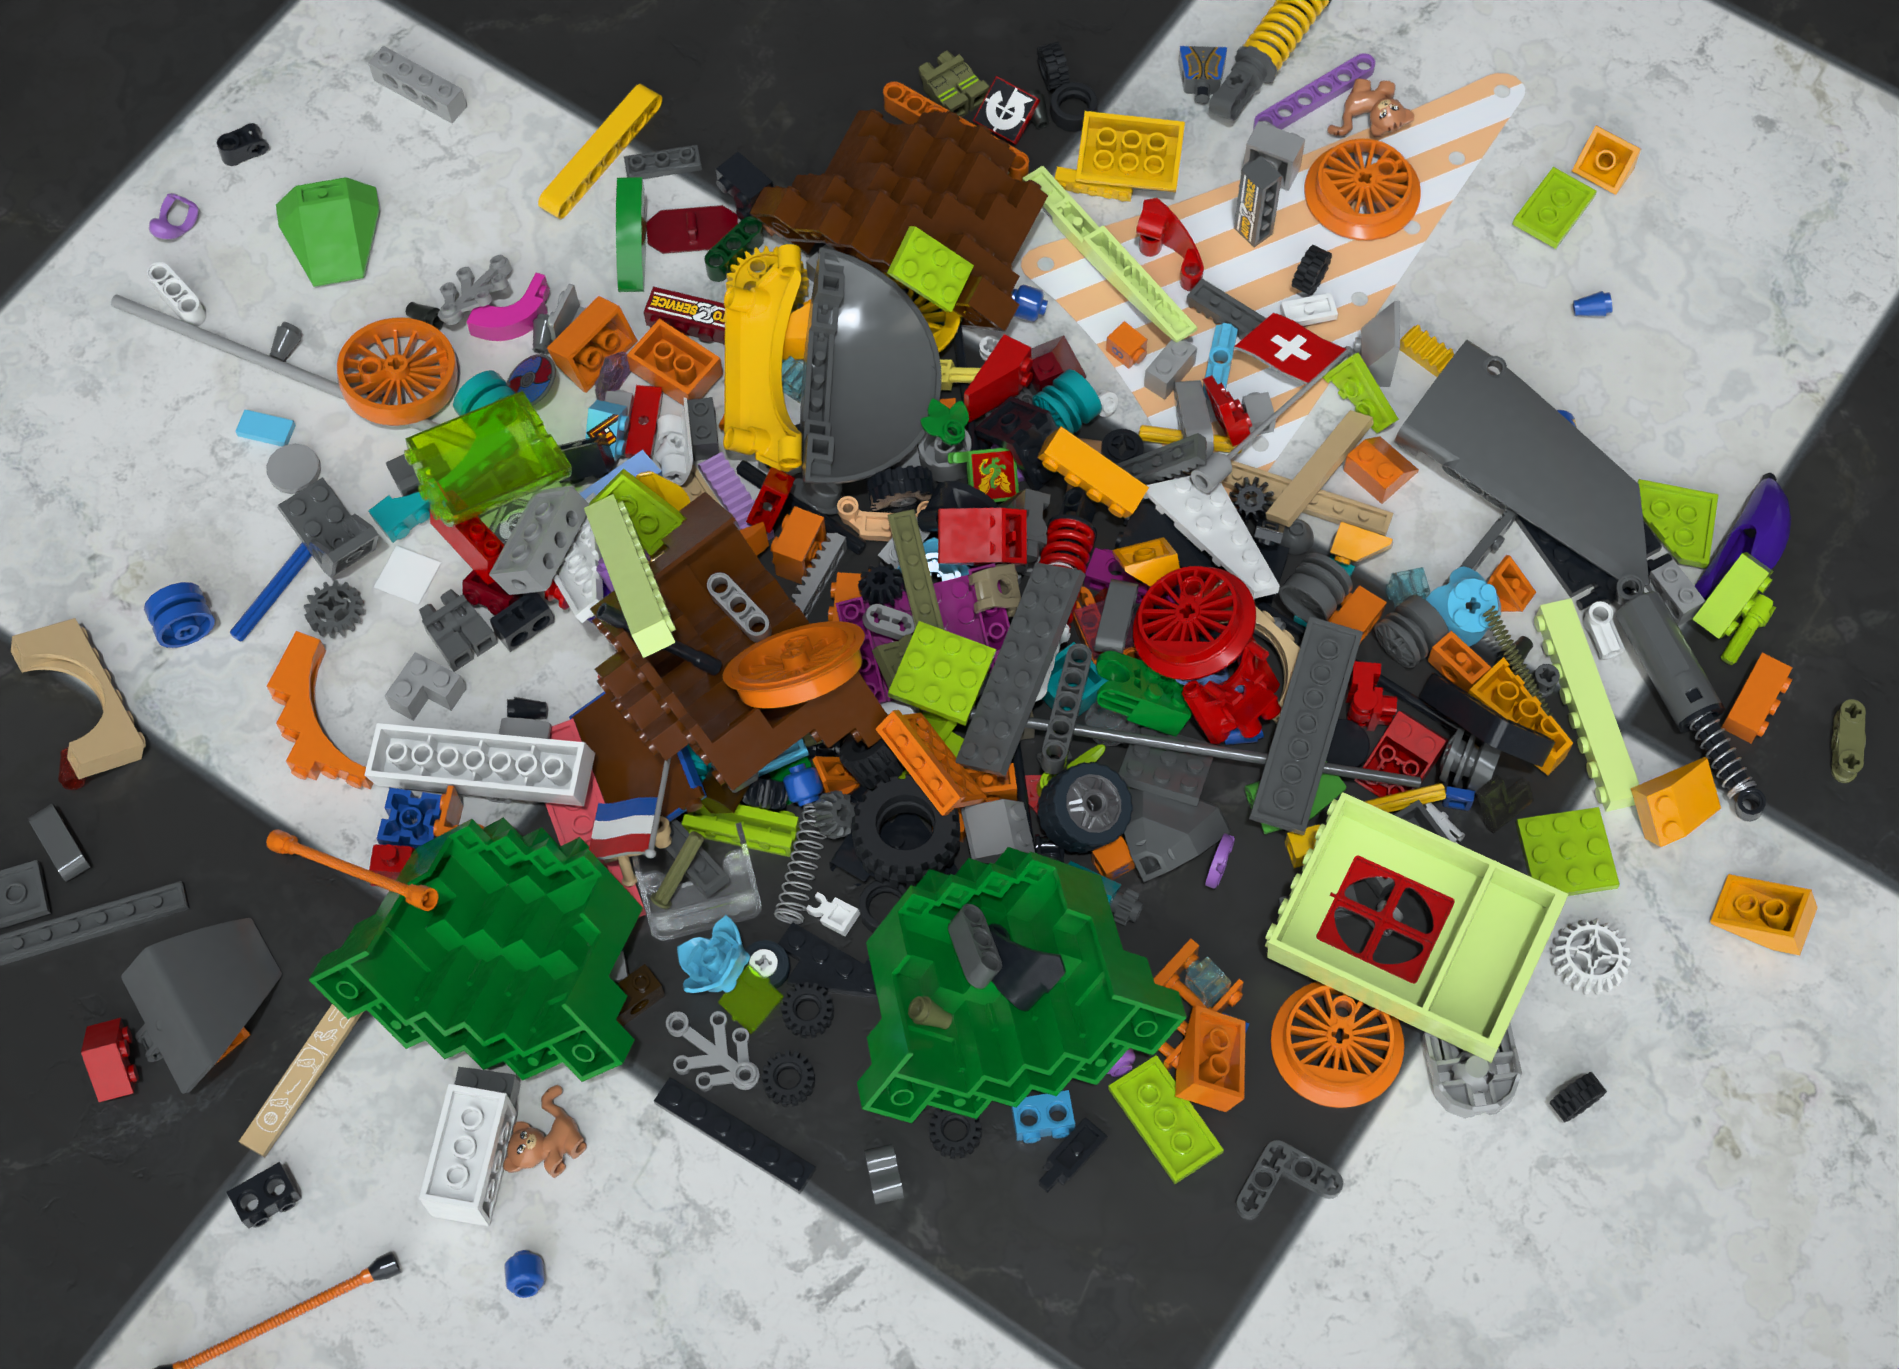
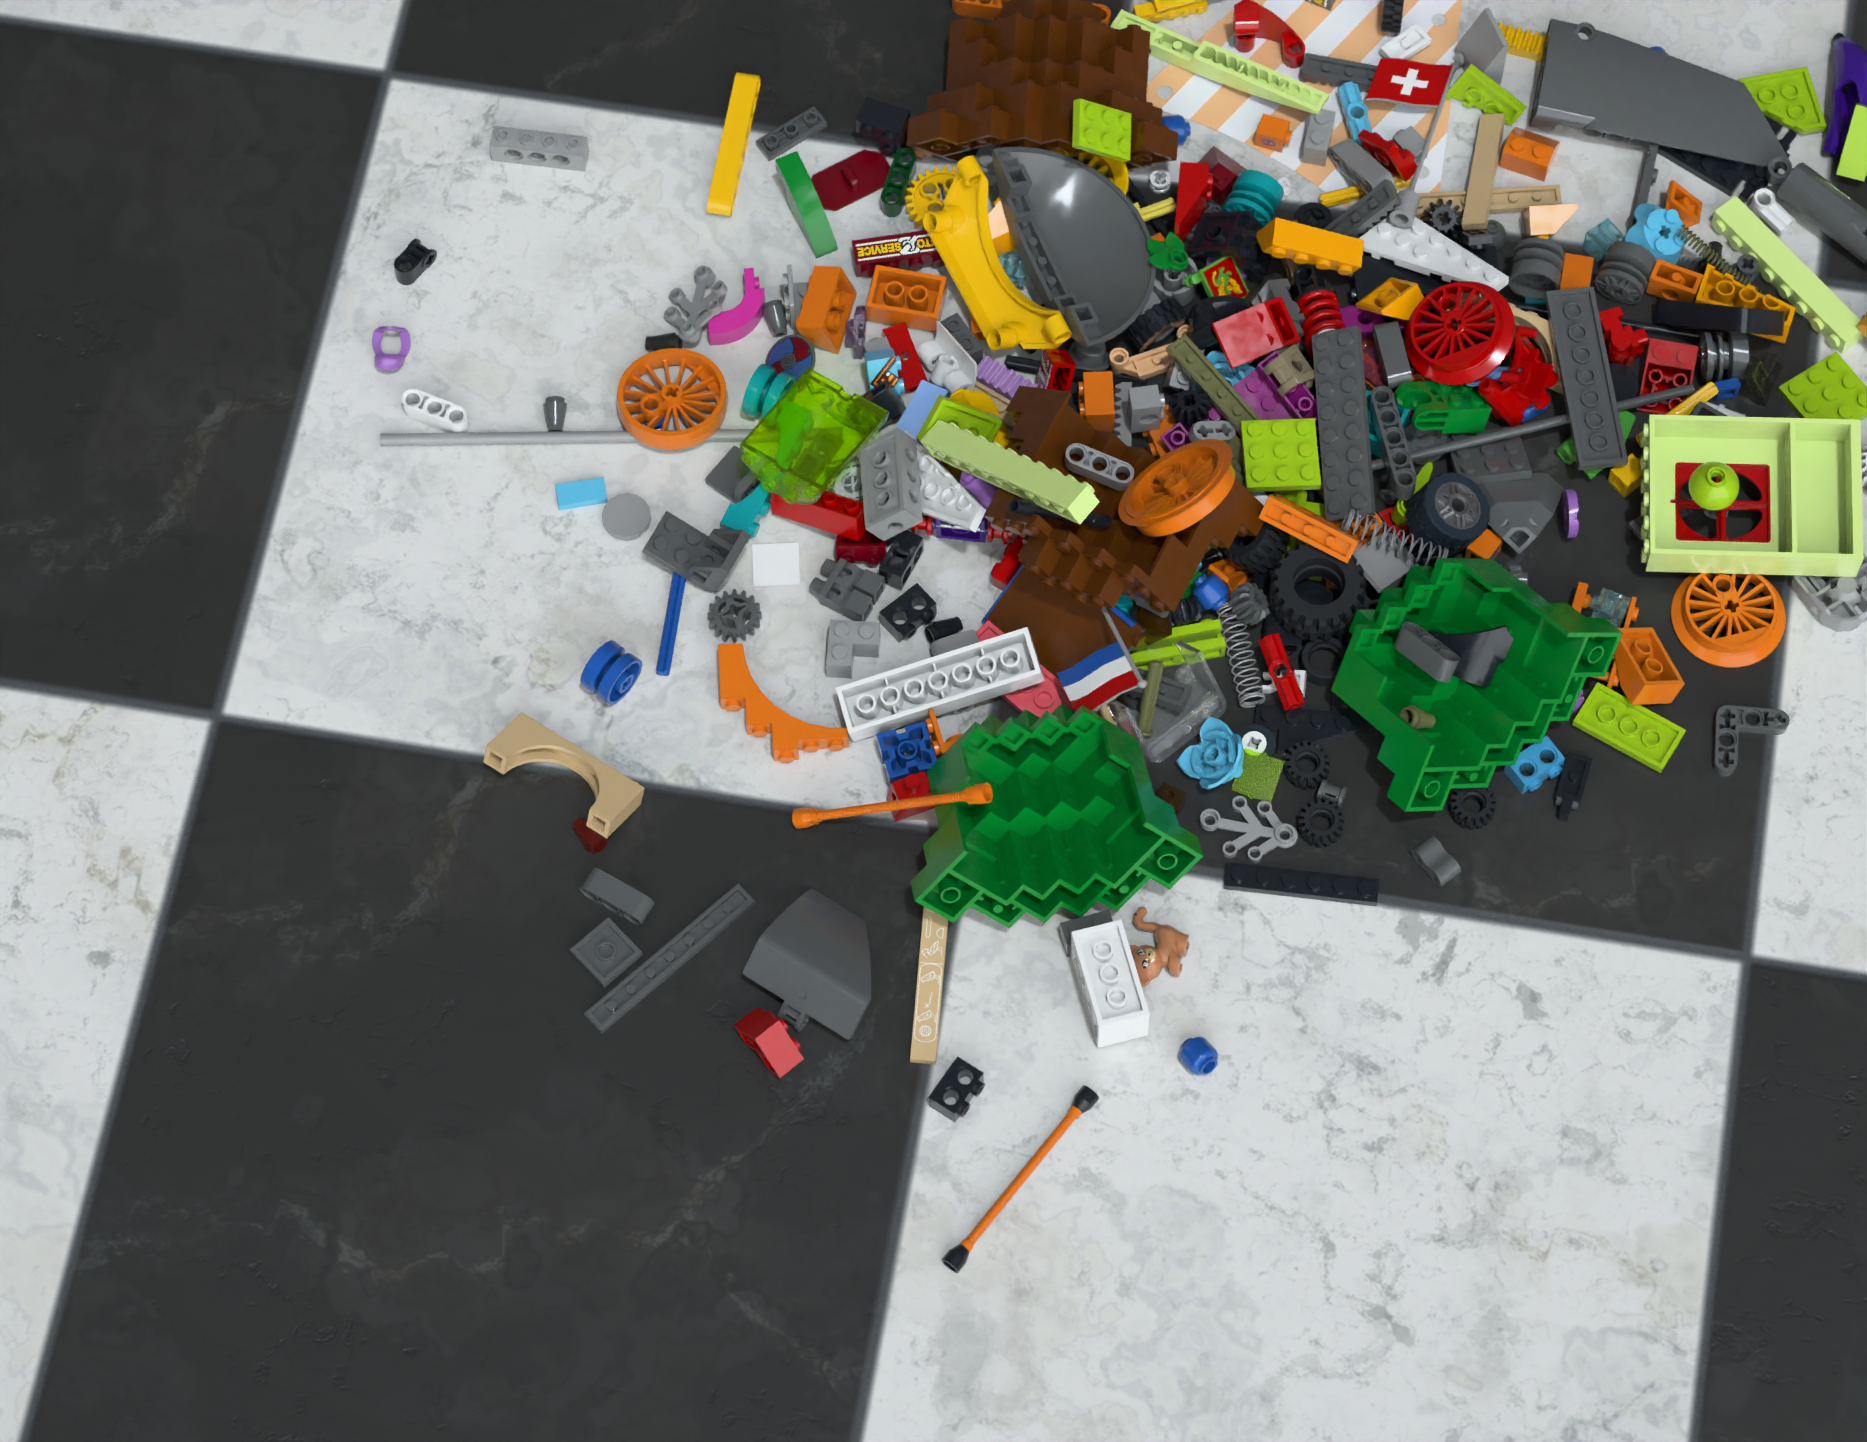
camera: 25 degrees left, 0 degrees up
(330, 228) = (536, 303): bright green wedge -> none
(499, 671) = (903, 609): none -> black brick
(816, 1051) = (1332, 792): none -> dark grey bush
(830, 883) = (1288, 685): none -> red piece
(834, 568) = (1145, 408): none -> light grey brick
(978, 766) = (1443, 553): none -> light grey piece
(1370, 911) = (1712, 494): none -> lime piece
(1677, 591) = (1814, 155): light grey brick -> none

